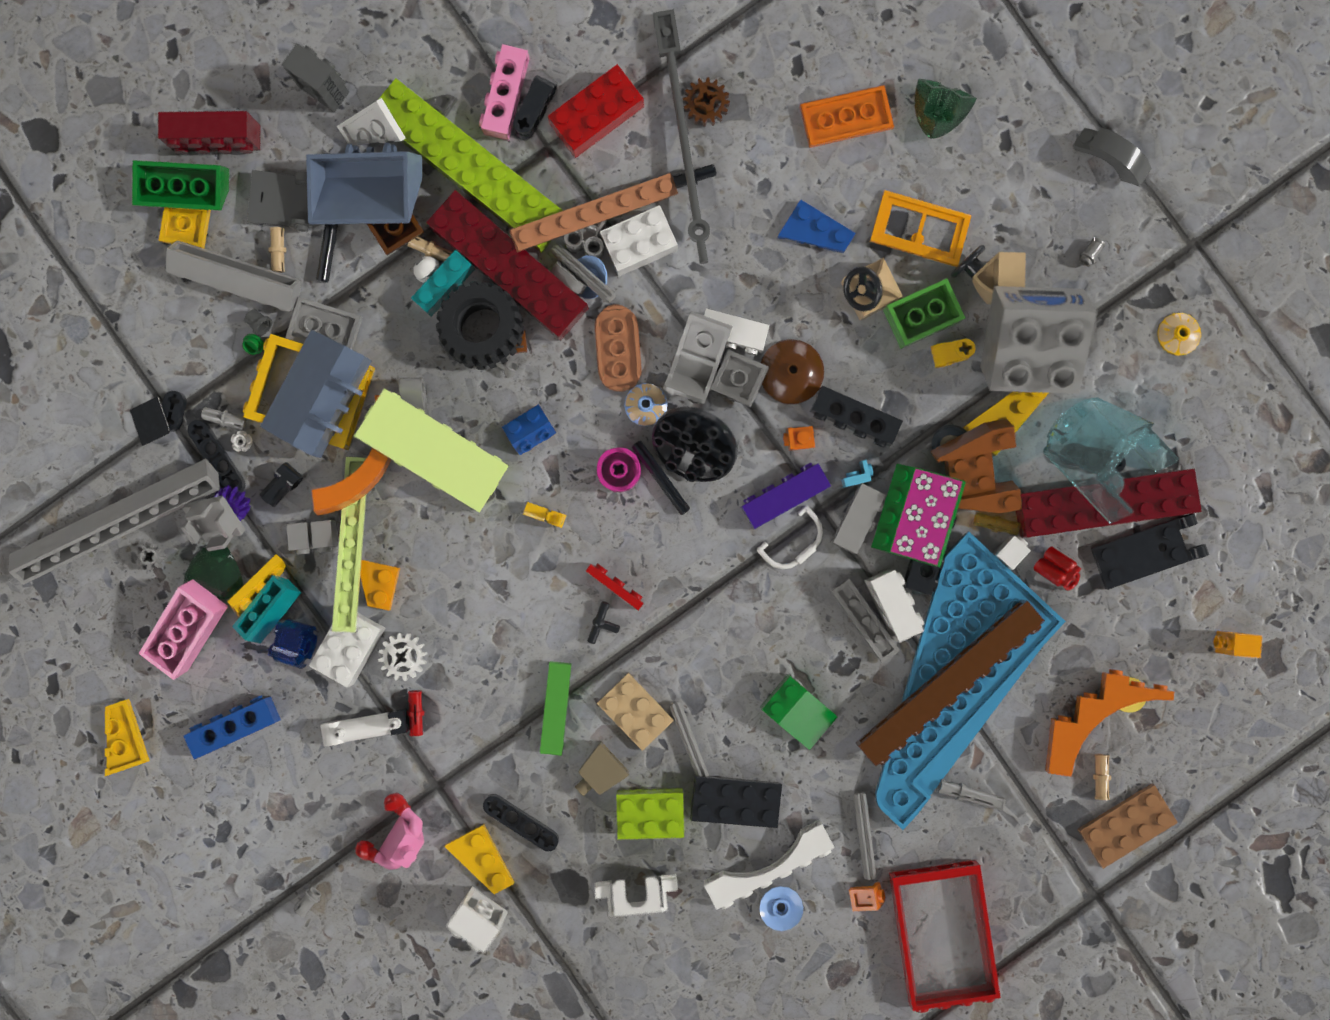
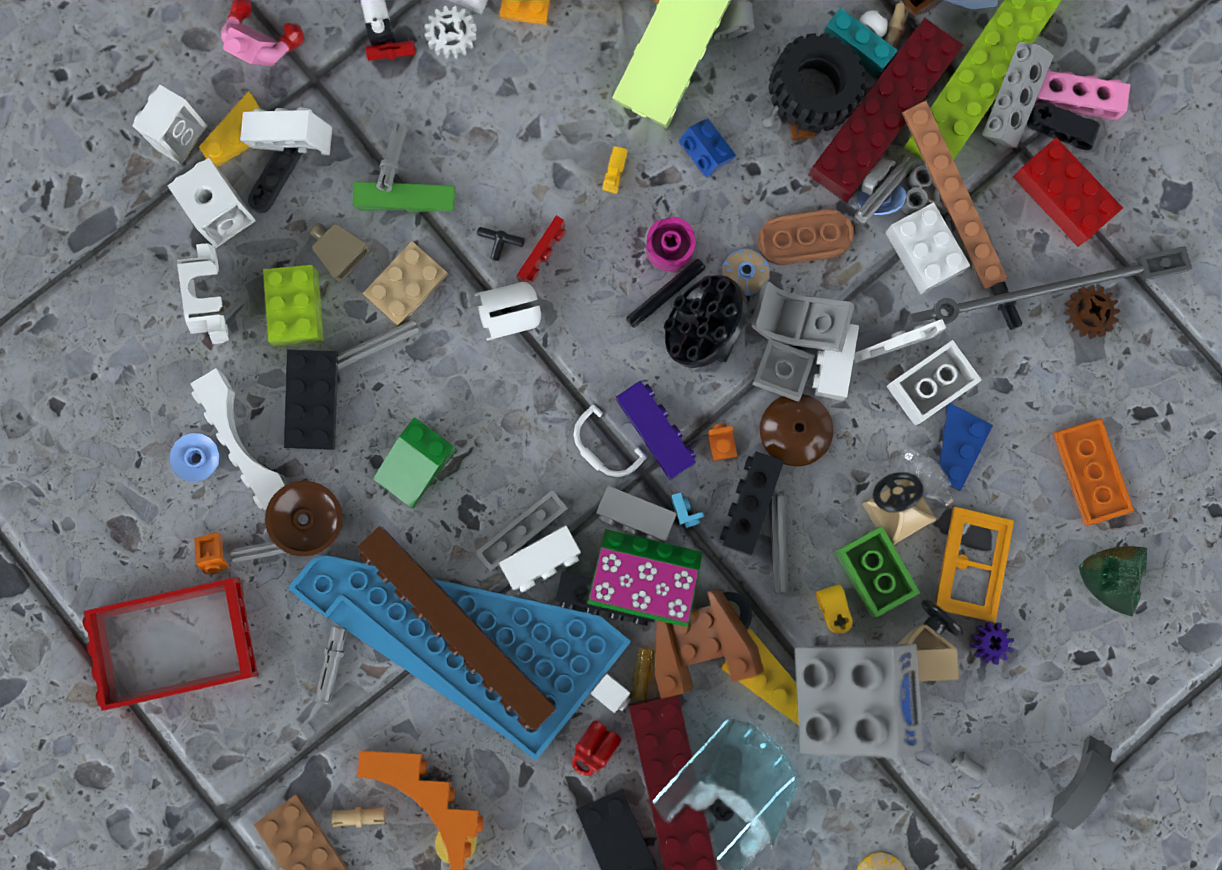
camera: 85 degrees right, 5 degrees down
(489, 813) = (286, 129): none -> white wedge
(505, 146) = (1017, 94): none -> light grey brick
(527, 719) = (389, 165): none -> light grey pin
(551, 884) = (211, 203): none -> white brick
(669, 619) = (506, 297): none -> white cylinder
(720, 273) = (900, 340): none -> white wing
(761, 247) = (934, 383): none -> white brick
(843, 260) = (931, 475): none -> clear piece
(860, 808) = (306, 499): none -> reddish brown dish
(890, 395) = (779, 544): none -> light grey axle
(987, 212) = (1000, 643): none -> dark purple gear

